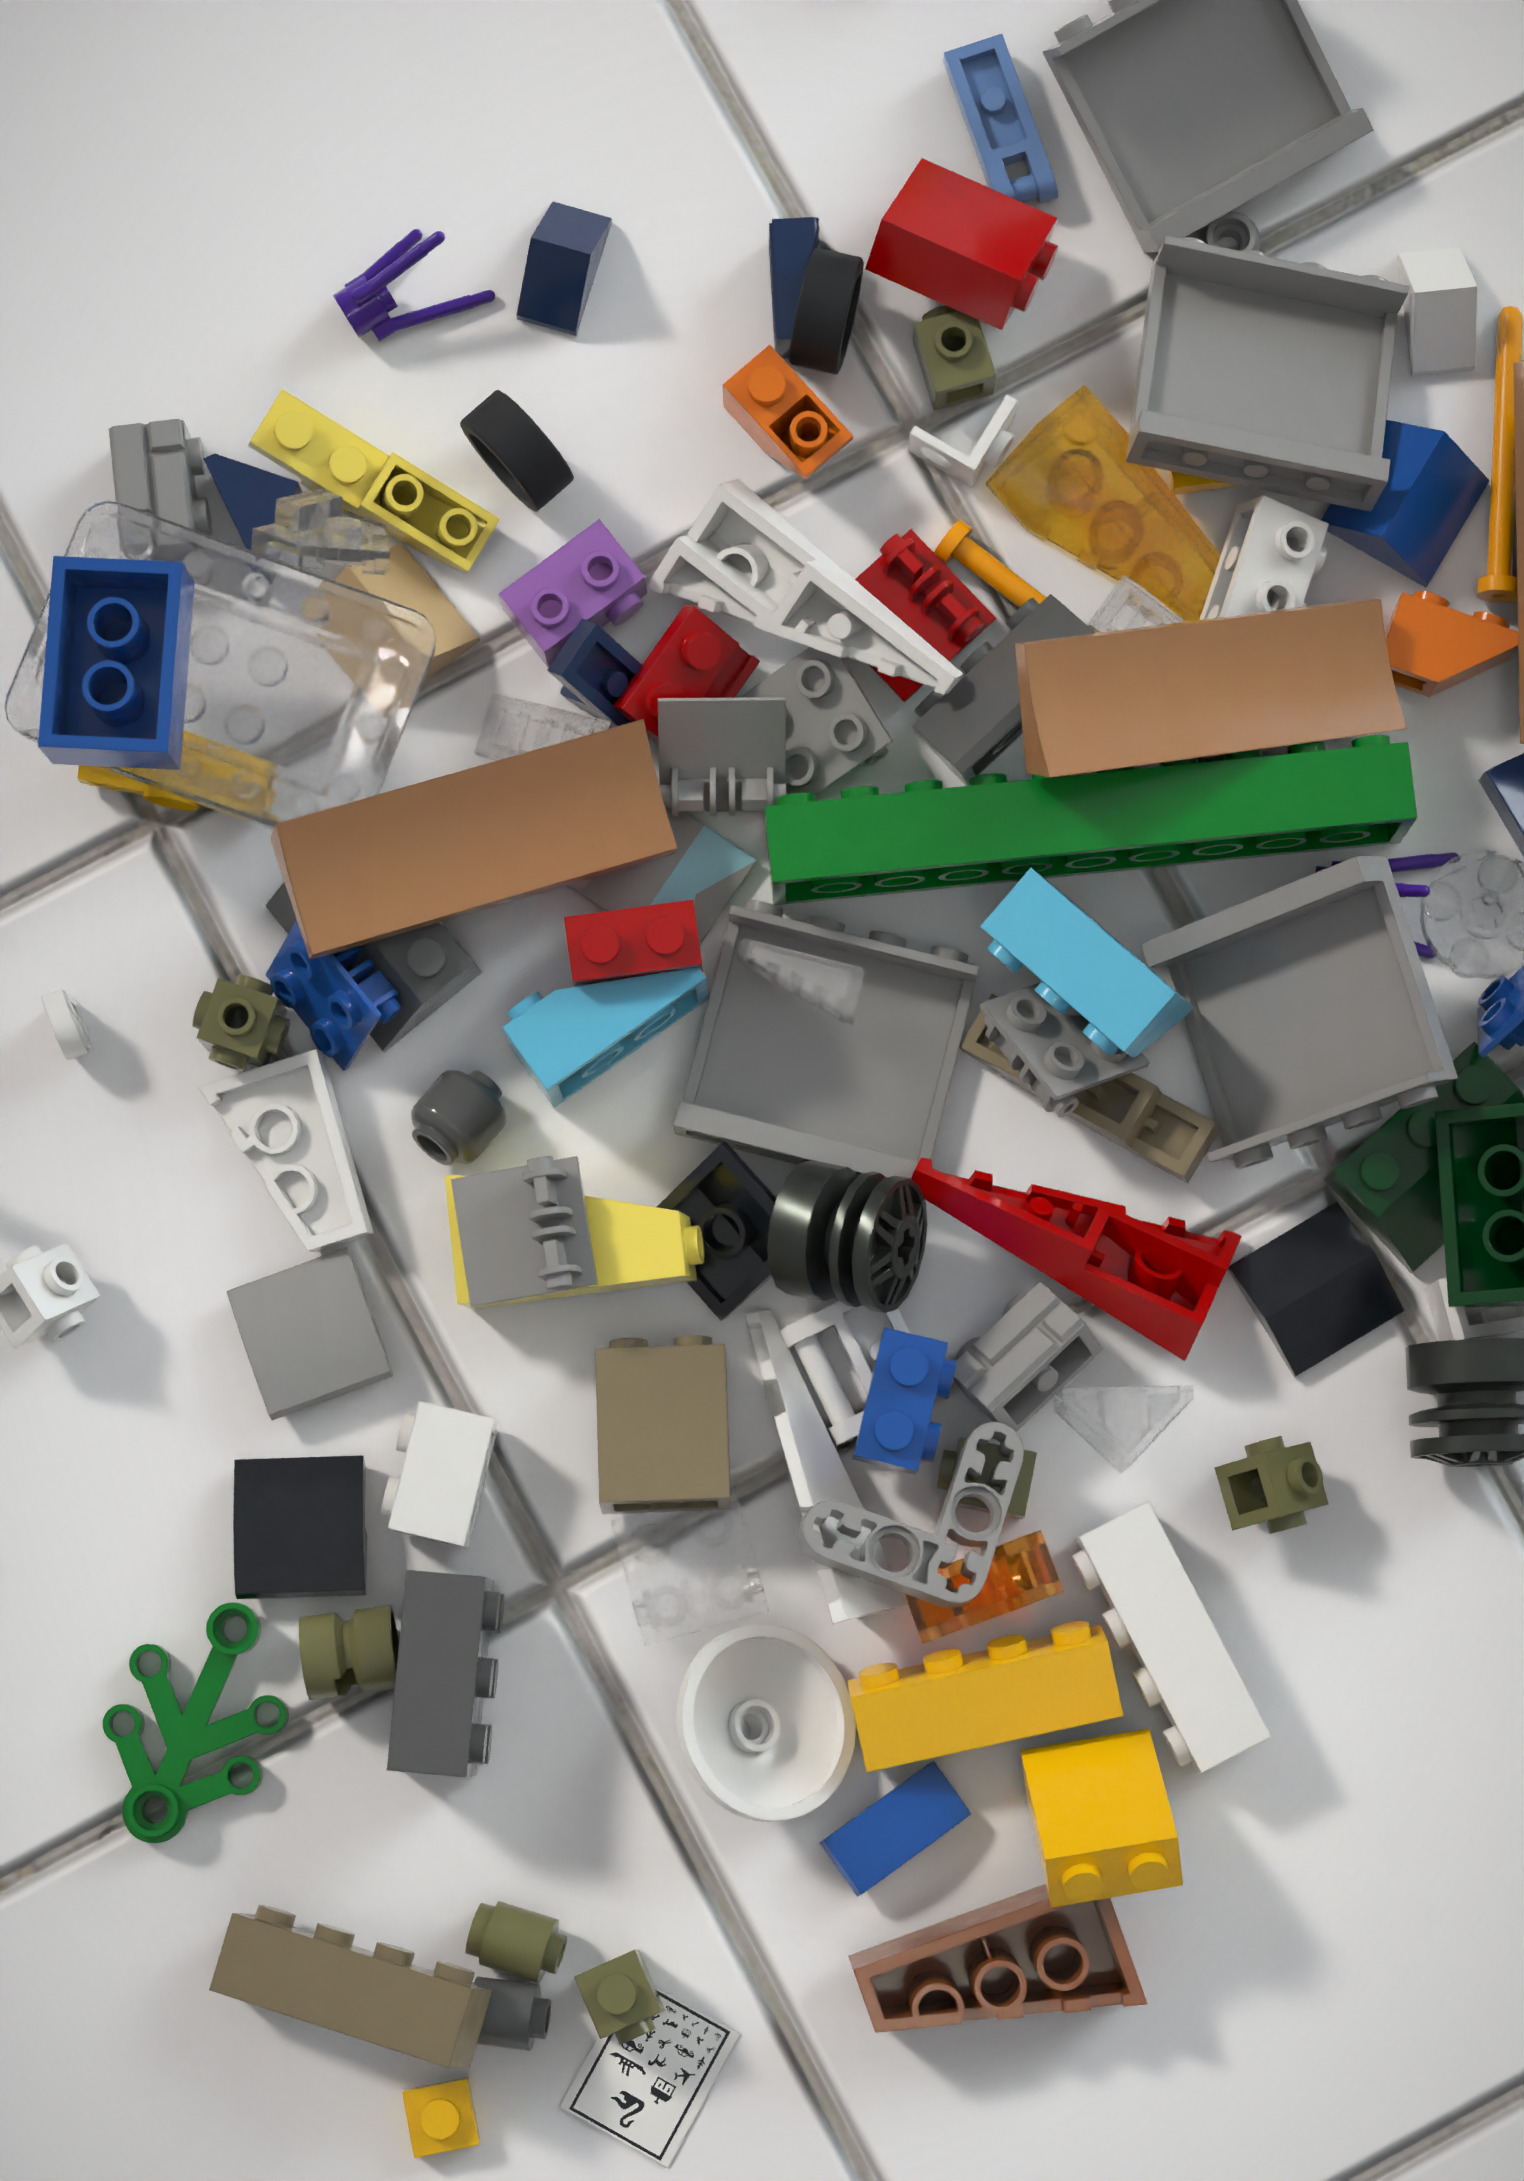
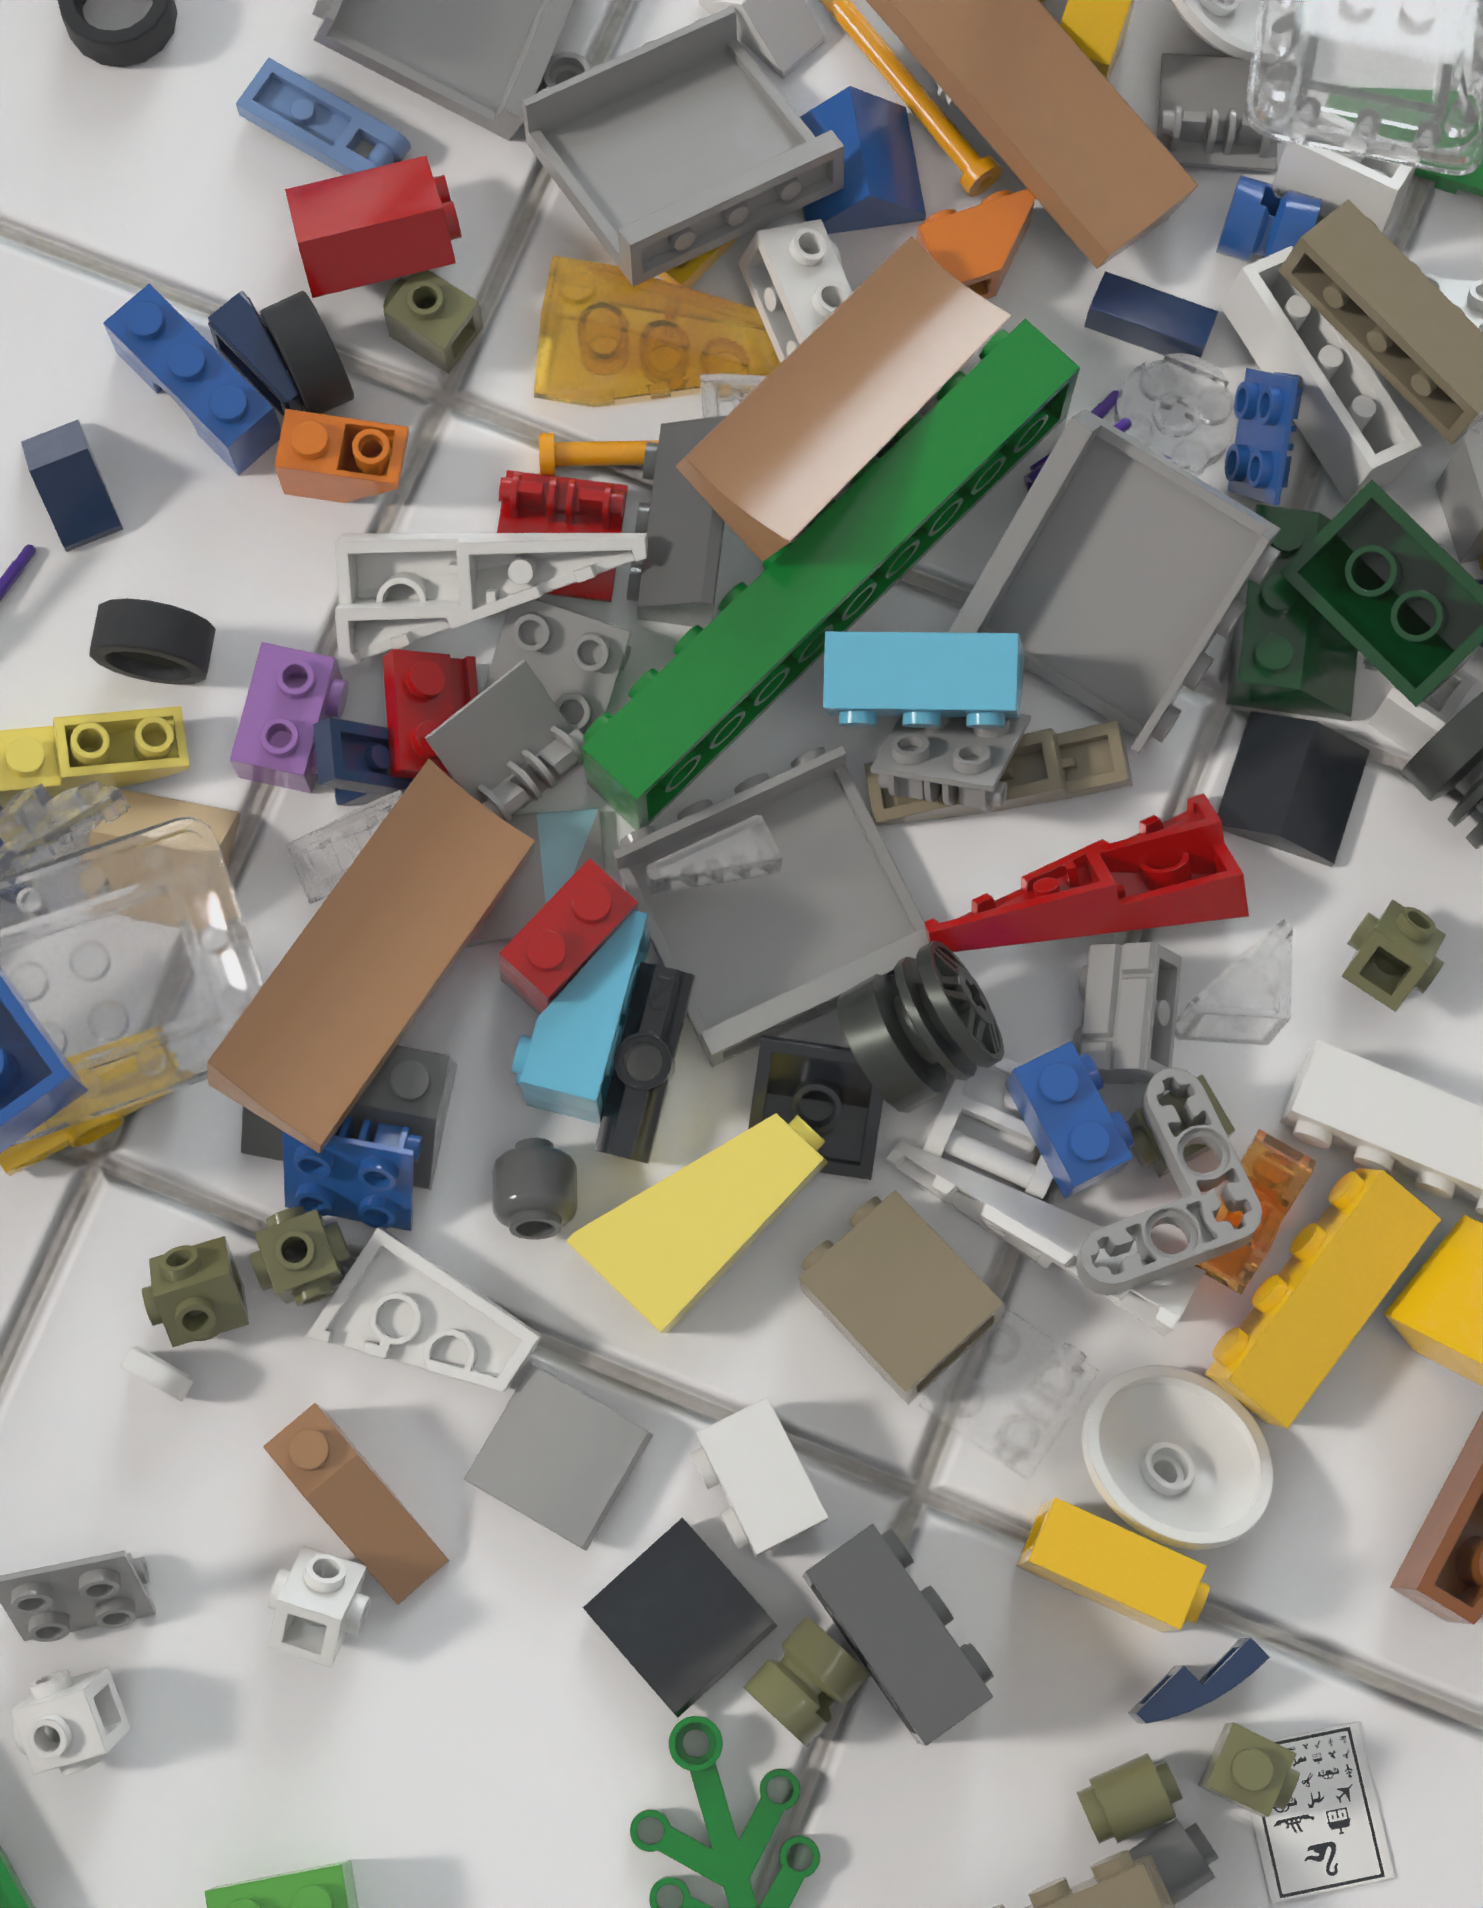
camera: 45 degrees left, 5 degrees down
(133, 1241) = (356, 1502): none -> medium nougat slope
(143, 986) = (196, 1292): none -> olive brick
(524, 1231) = (667, 1229): light grey hinge -> none
(621, 1899) = (1182, 1692): none -> dark blue slope
(644, 1762) = (1114, 1567): none -> yellow brick
(655, 1064) = (654, 1020): none -> black piece
(723, 258) = (199, 379): none -> blue arch
(895, 1828) = (1340, 1457): blue slope -> none
(988, 450) = (507, 389): white bracket -> none

